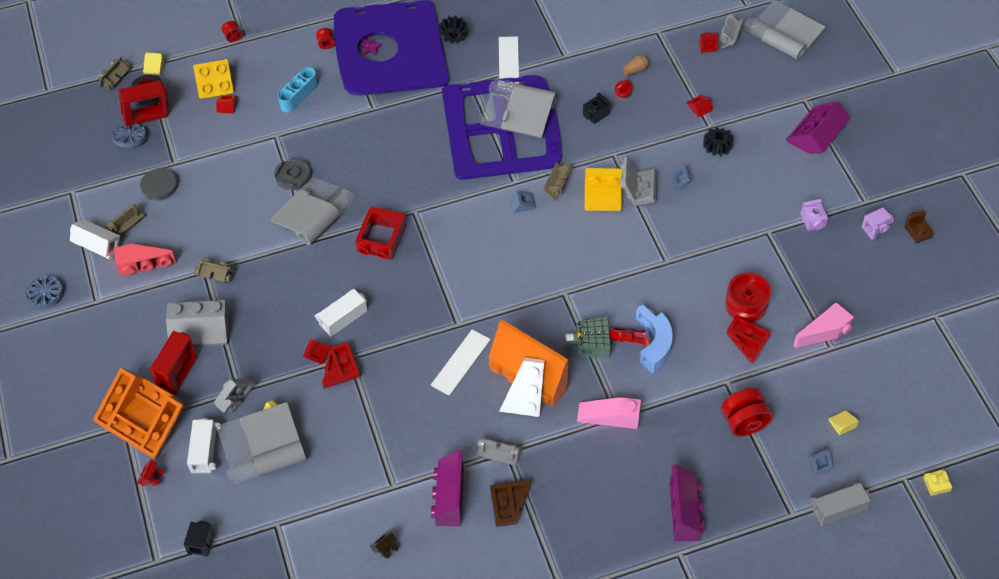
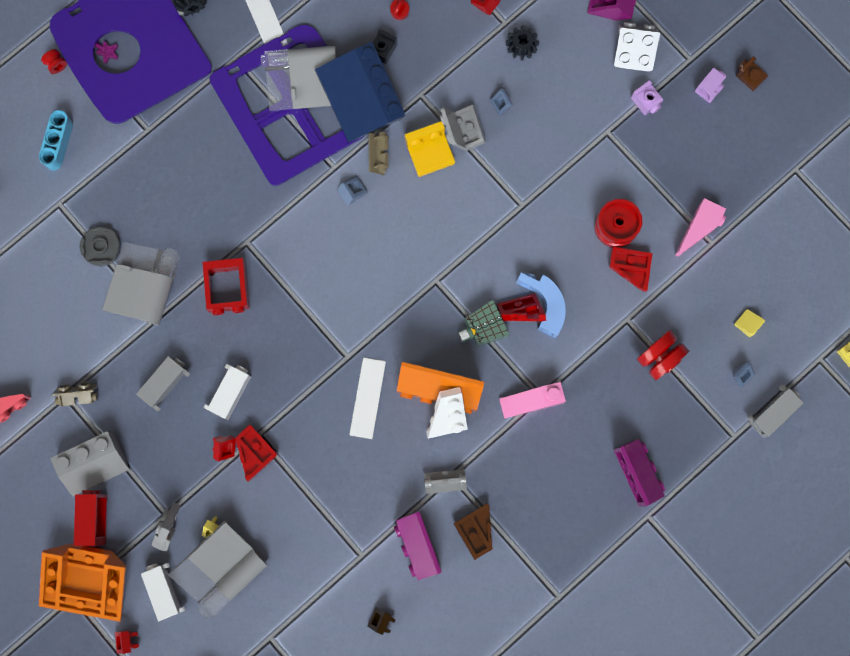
camera: 25 degrees left, 25 degrees up
(290, 285) = (162, 382): none -> light grey brick
(562, 129) = (360, 92): none -> dark blue slope
(819, 175) = (636, 46): none -> bracket

